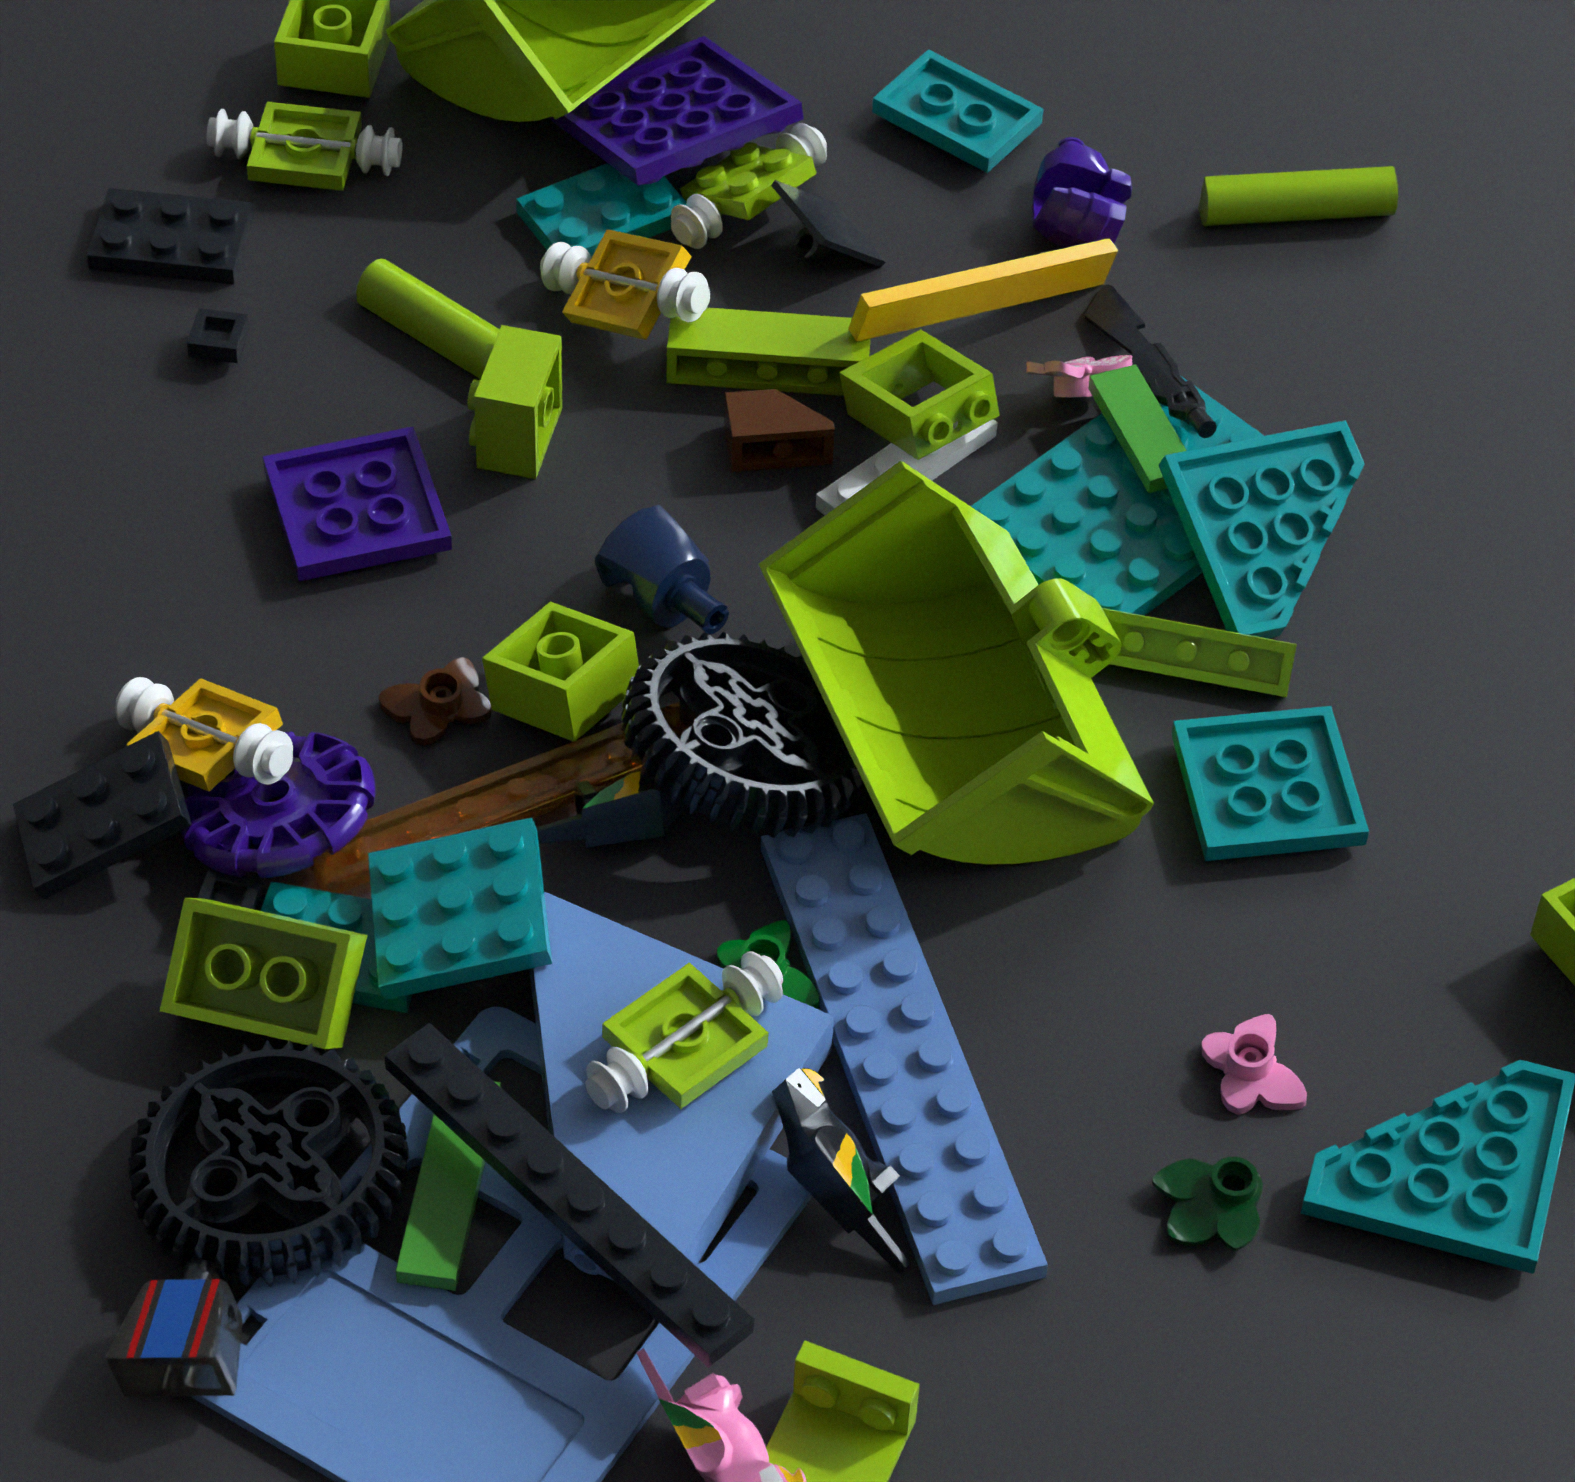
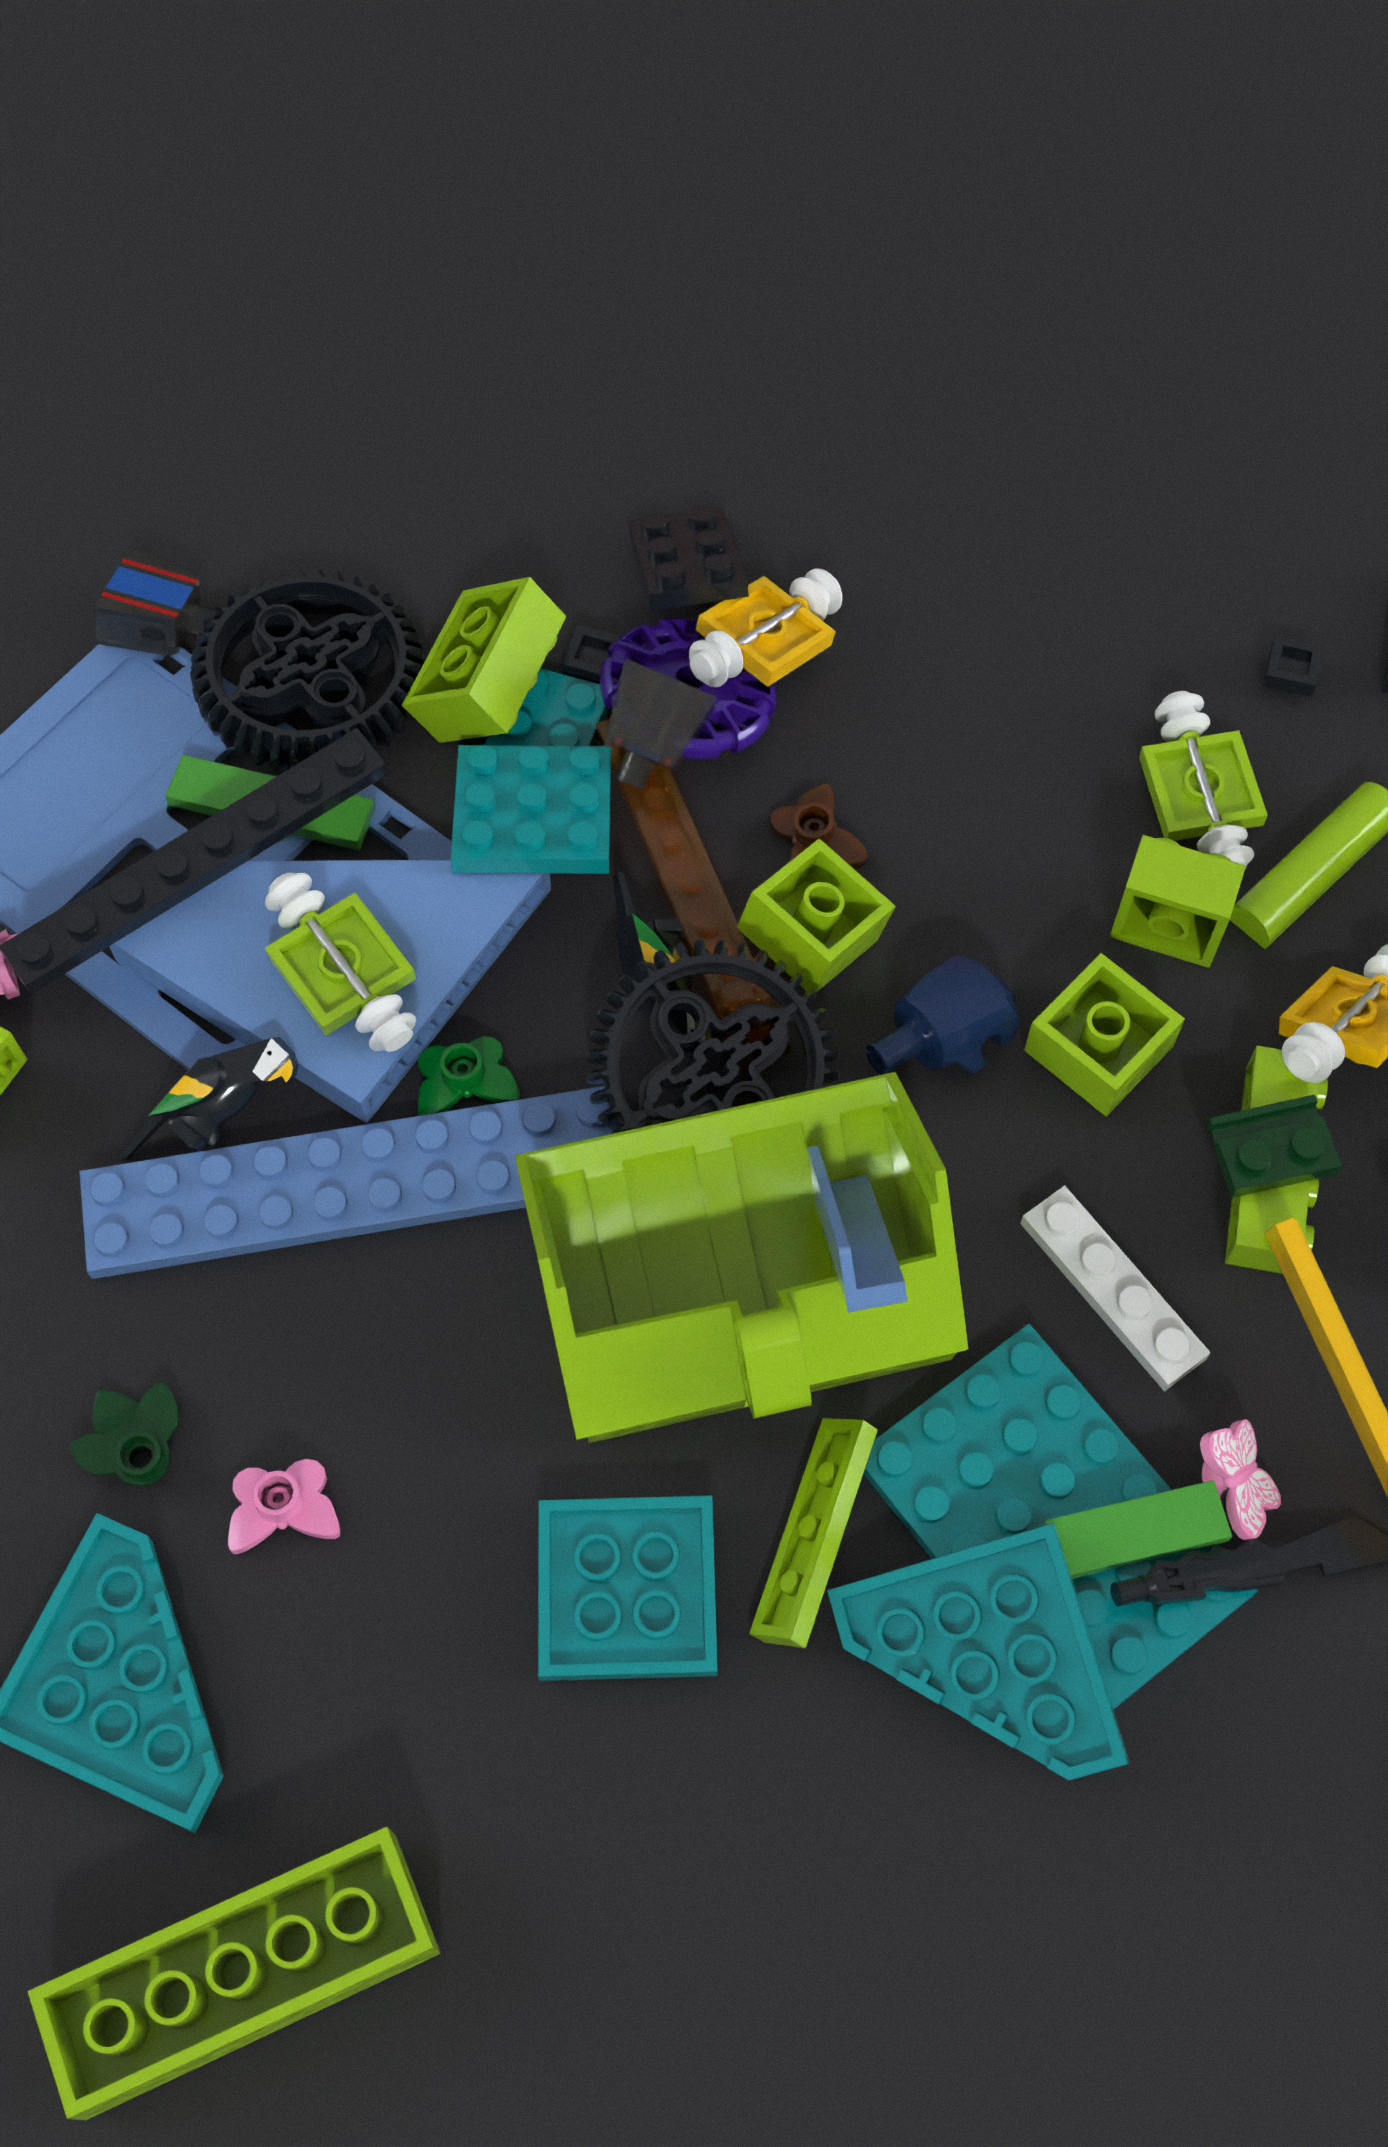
camera: 100 degrees right, 15 degrees up
(350, 788) = (654, 721): none -> clear smoke torso
(356, 503) = (1065, 772): dark purple plate -> none
(366, 397) = (1202, 782): none -> lime plate
(664, 455) = (1103, 1034): none -> lime brick
(773, 331) = (1273, 1146): none -> dark green plate
(775, 432) = (1153, 1145): reddish brown slope -> none
(880, 382) = (1222, 1268): lime window -> none
(941, 573) = (857, 1239): none -> medium blue panel

